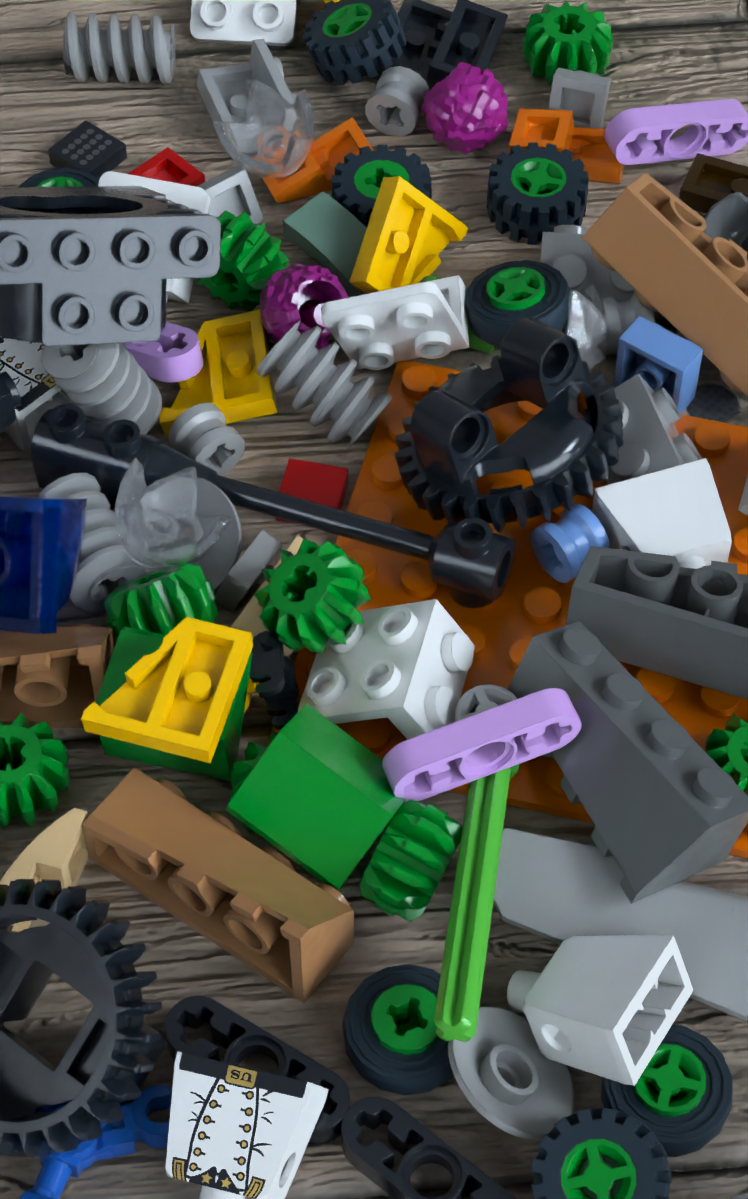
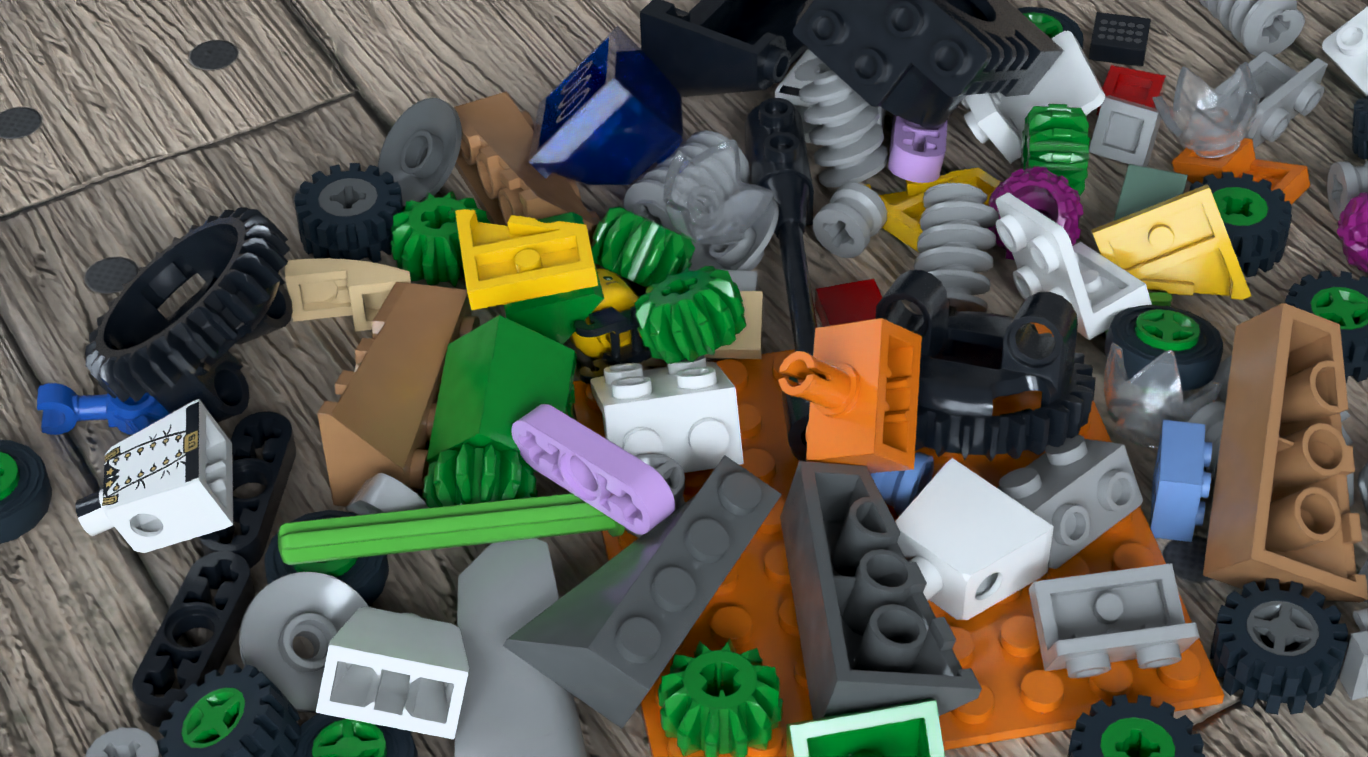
camera: 65 degrees right, 10 degrees down
(391, 942) = (384, 495): none -> light grey beam
(539, 508) = (859, 394): none -> orange brick

